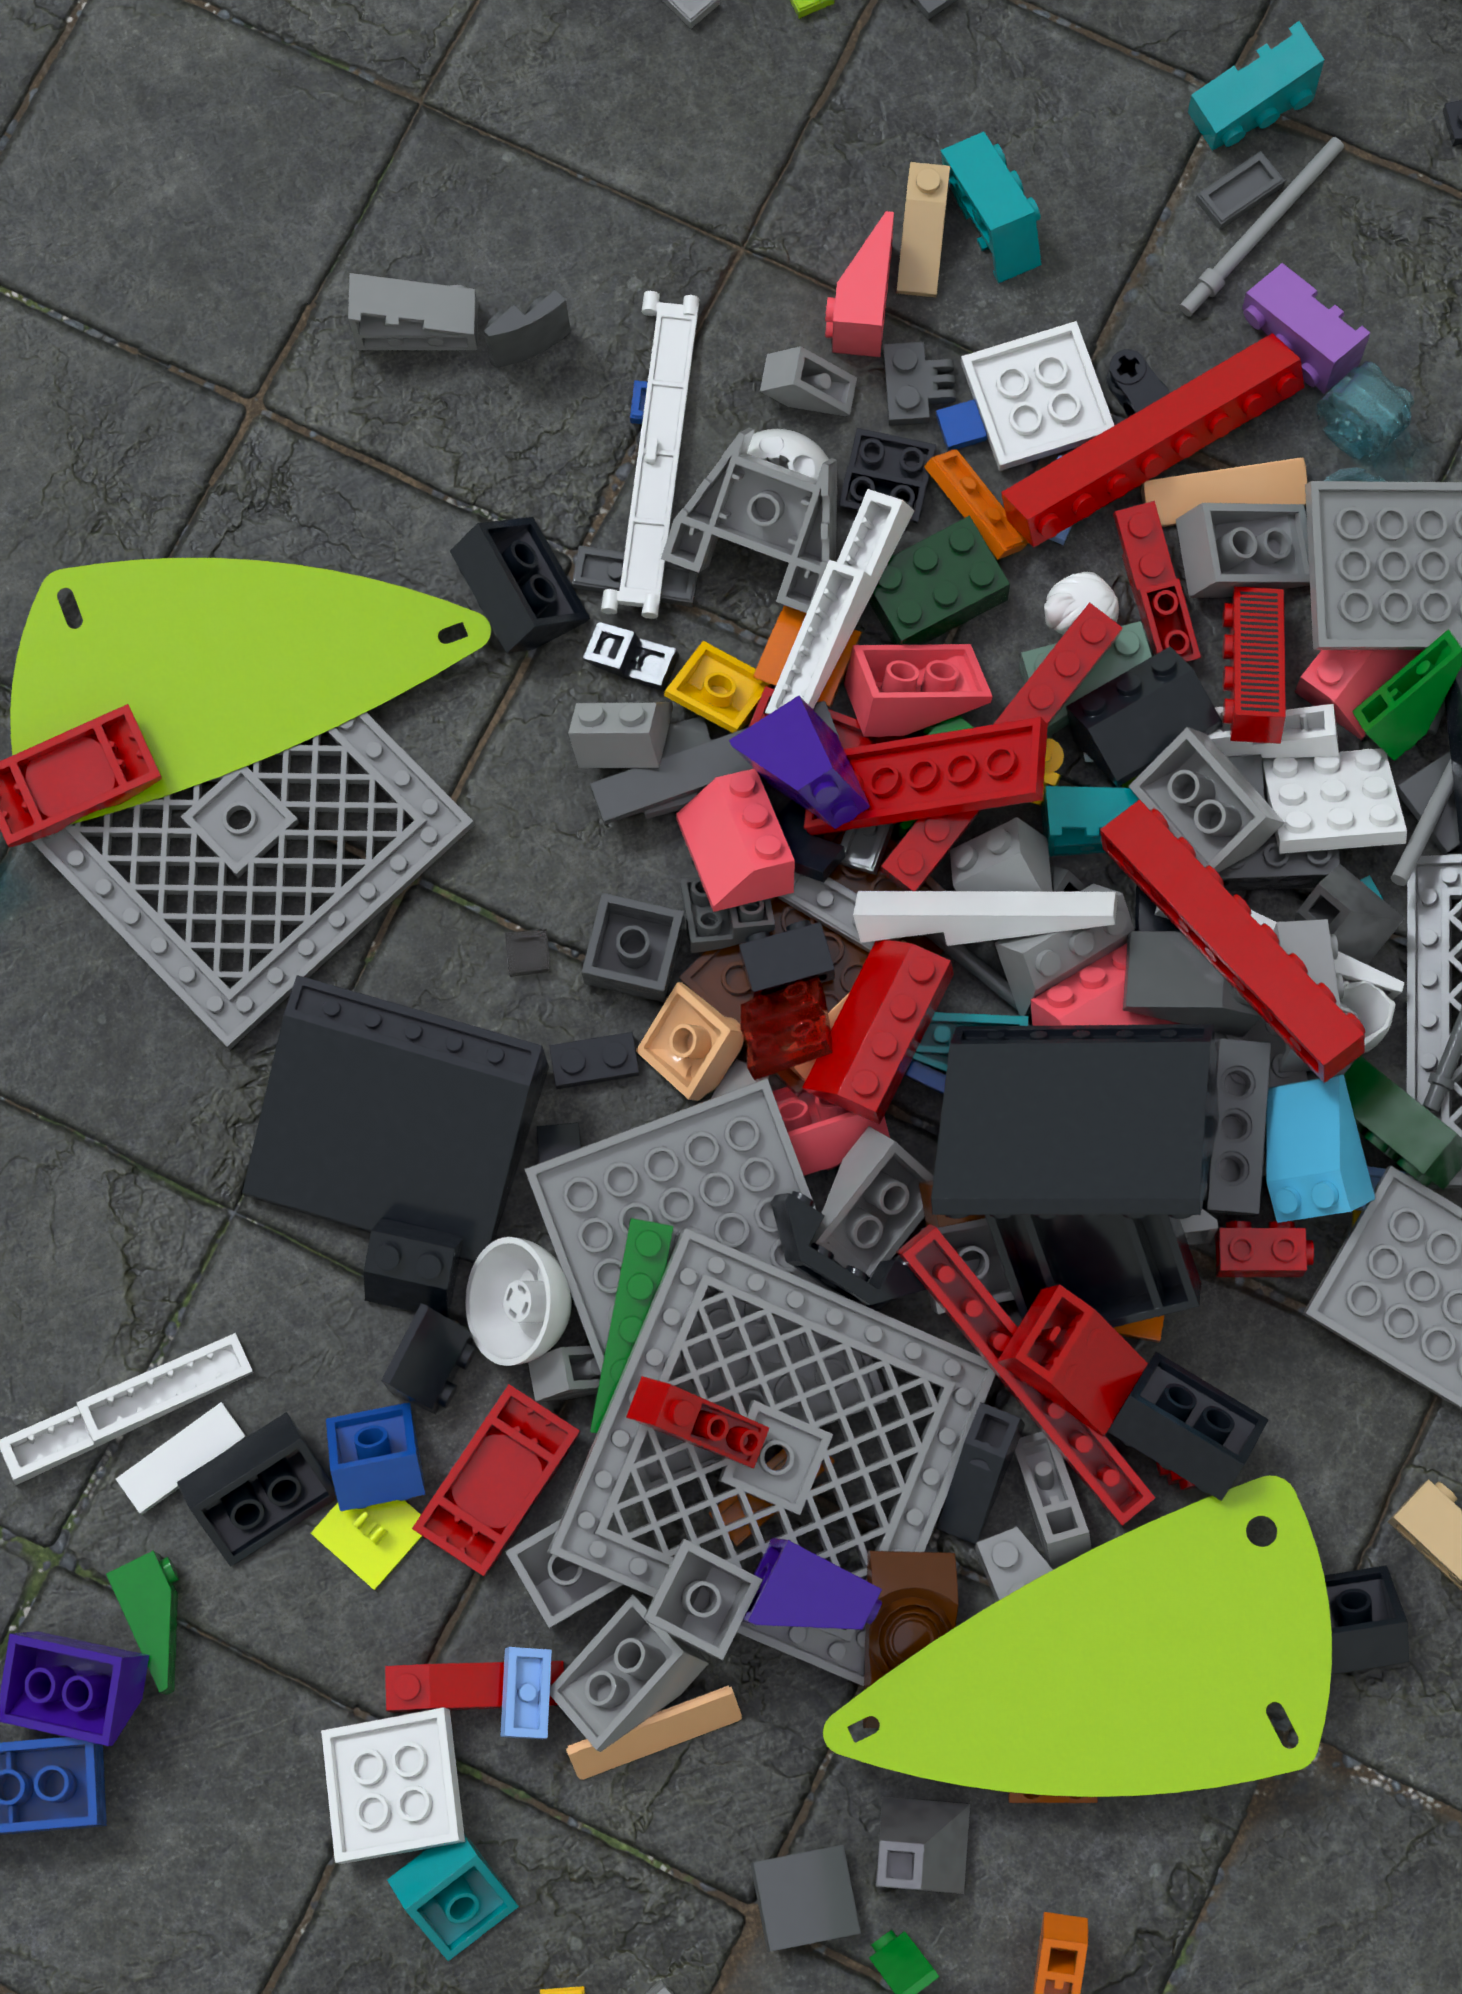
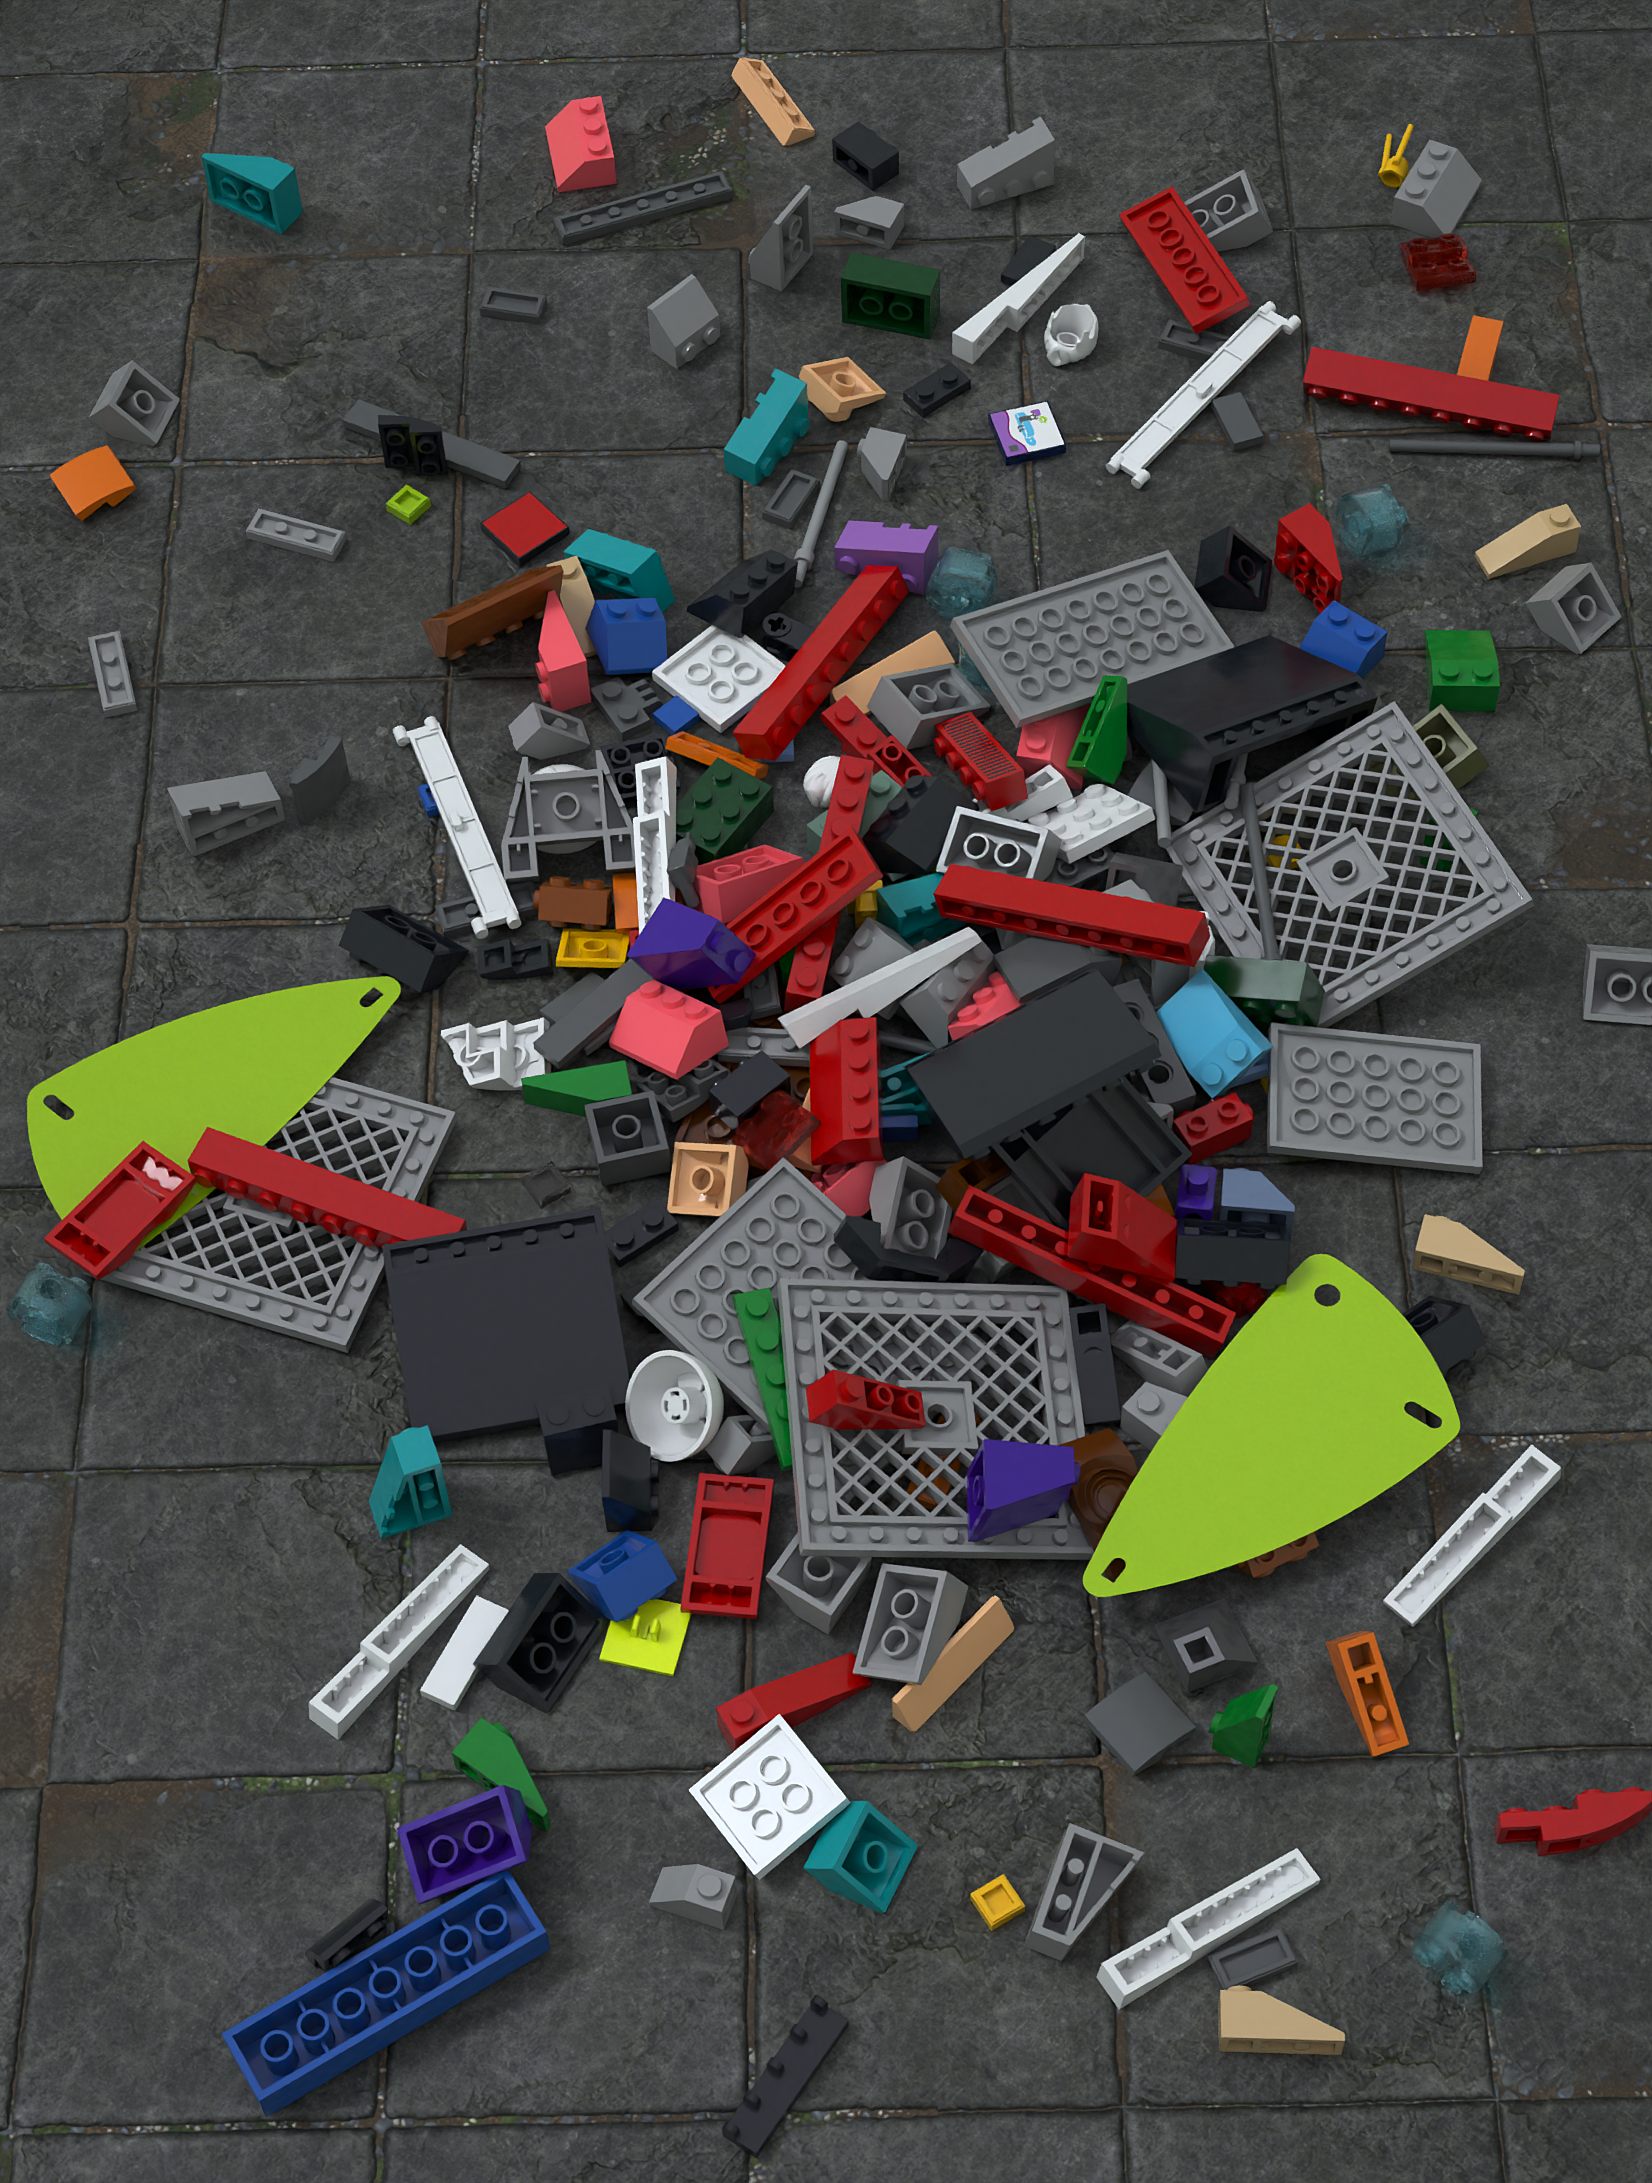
camera: 30 degrees left, 20 degrees down
(209, 1253) = (409, 1484): none -> teal wedge
(270, 1845) = (696, 1893): none -> light grey slope
(282, 866) = (313, 1193): none -> red brick
(380, 67) = (112, 674): none -> light grey tile
(526, 1693) = (837, 1678): light blue plate -> none
(547, 773) = (498, 1053): none -> white slope
(619, 734) = (537, 999): light grey slope -> none
(628, 866) = (577, 1087): none -> green slope
(702, 1599) = (942, 1523): light grey slope -> none
(725, 621) = (574, 903): none -> dark orange brick
(821, 192) = (492, 611): none -> dark orange slope
(854, 647) = (683, 868): none -> dark grey piece
(921, 87) = (524, 528): none -> red tile
(957, 300) = (628, 635): none -> blue slope
(1117, 303) = (747, 593): none -> black slope
(1192, 1334) = (1196, 1191): none -> dark purple torso
(1246, 1374) = (1253, 1198): none -> sand blue slope
(1268, 1870) = (1473, 1535): none -> white slope
(1370, 189) = (882, 459): none -> light grey slope
(1373, 64) = (839, 387): none -> light nougat slope

